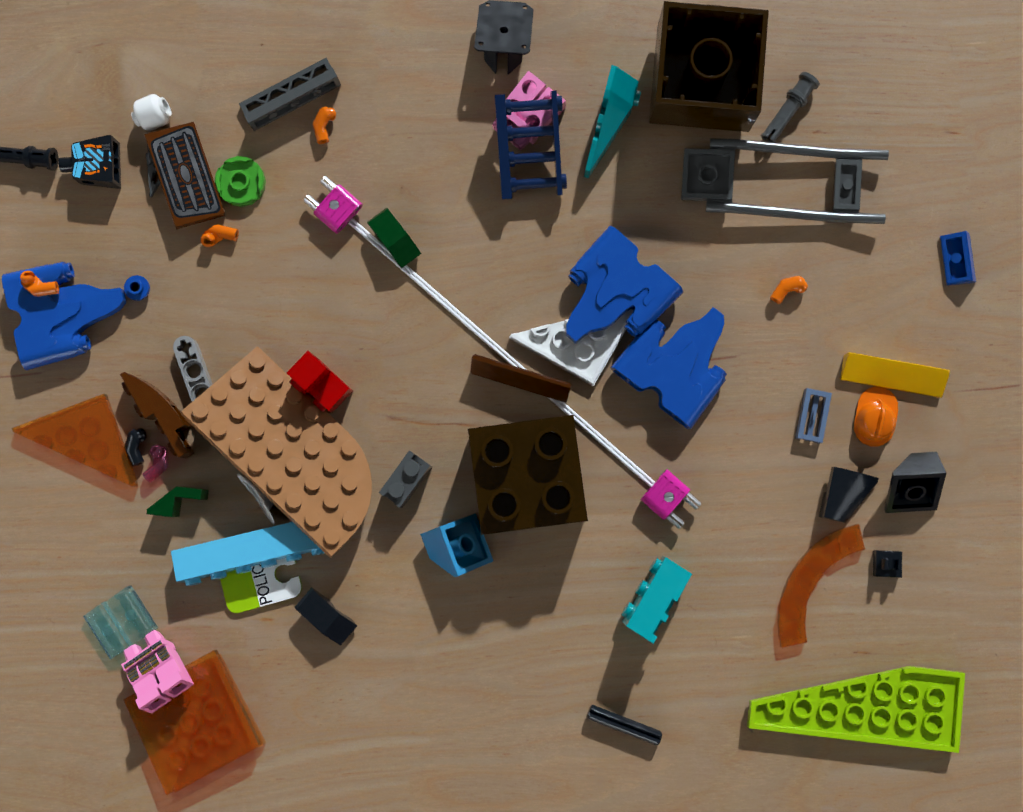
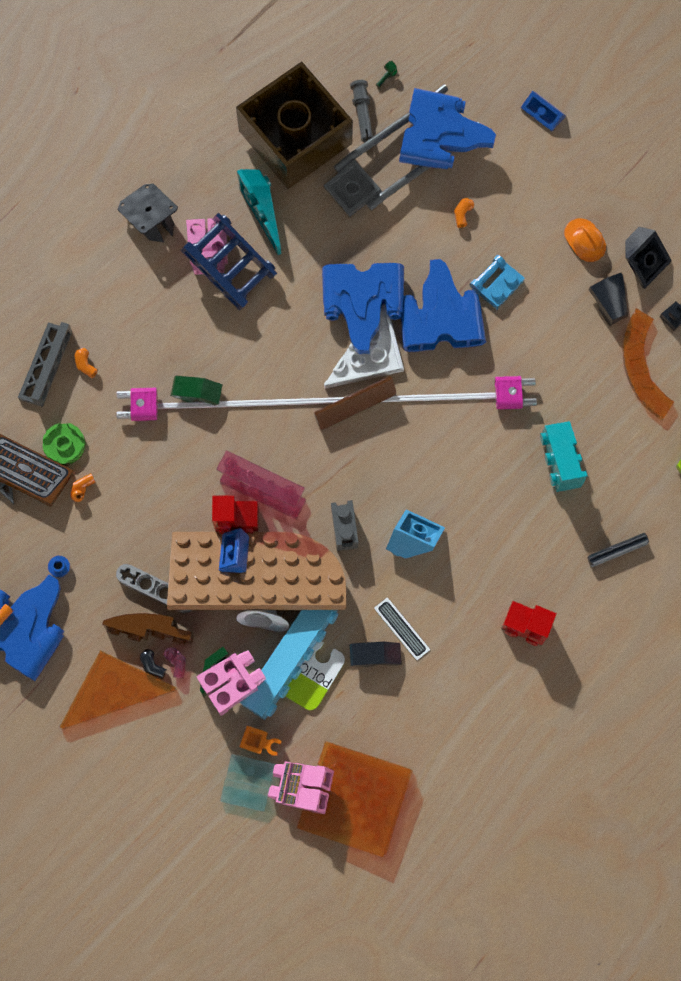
camera: 50 degrees left, 10 degrees down
(158, 594) = (256, 740): none -> orange plate
(183, 530) = (234, 676): none -> bright pink hips
(286, 416) = (234, 551): none -> blue slope
(363, 377) = (261, 485): none -> clear pink fence
(372, 613) = (402, 628): none -> sticker
(481, 716) = (528, 623): none -> red brick
(527, 474) = (417, 451): dark brown brick -> none
(755, 391) = (503, 285): none -> dark azure plate
(803, 414) = (558, 285): sand blue tile -> none
(841, 191) = (440, 129): none -> blue rock
(854, 92) = (391, 69): none -> dark green hand
(894, 374) = (571, 206): yellow slope -> none

